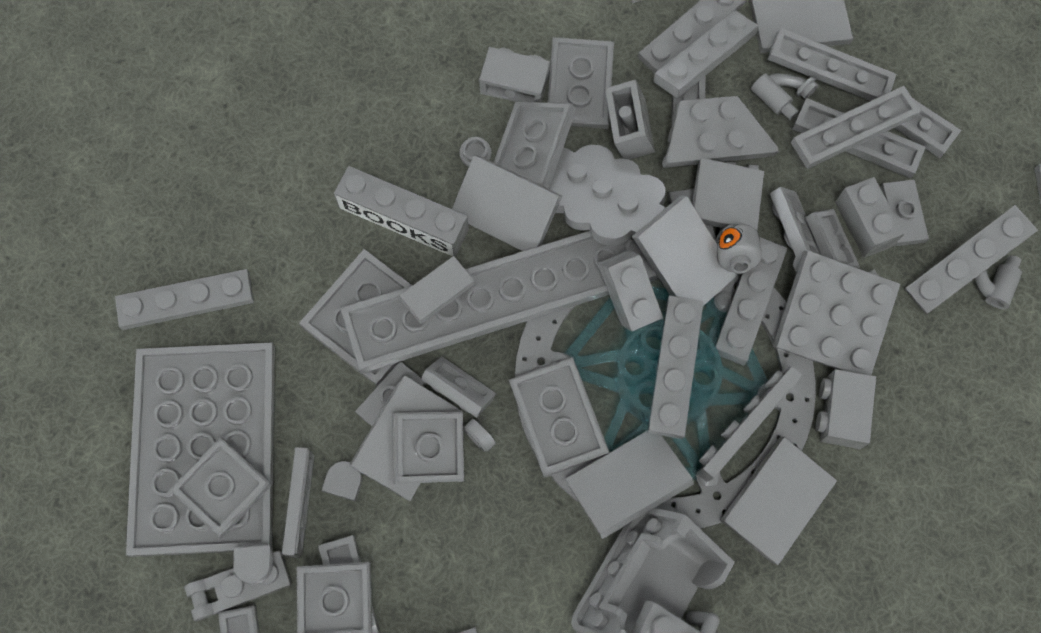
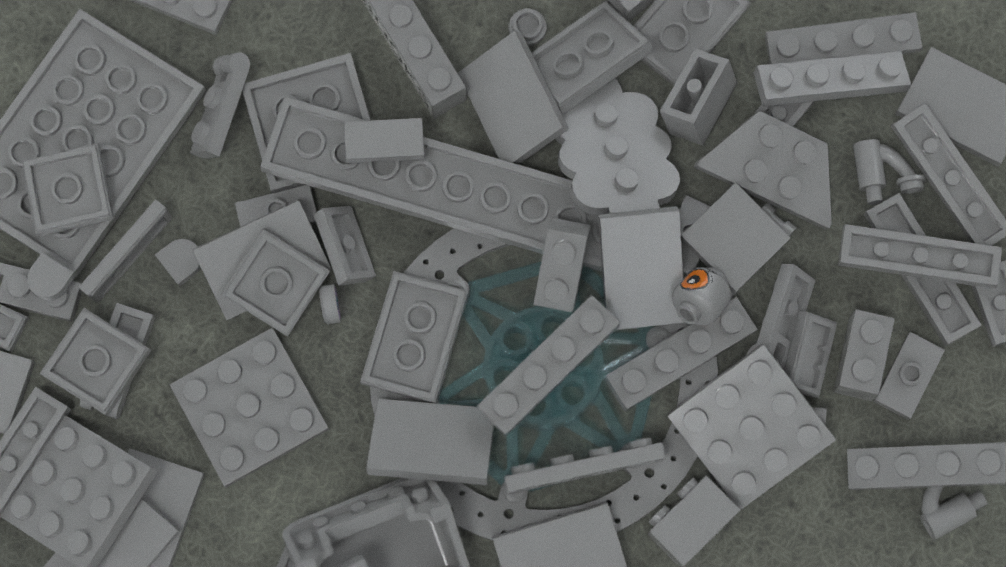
camera: 40 degrees right, 5 degrees up
(294, 348) = (220, 105): none -> light grey plate
(473, 553) = (249, 407): none -> light grey plate

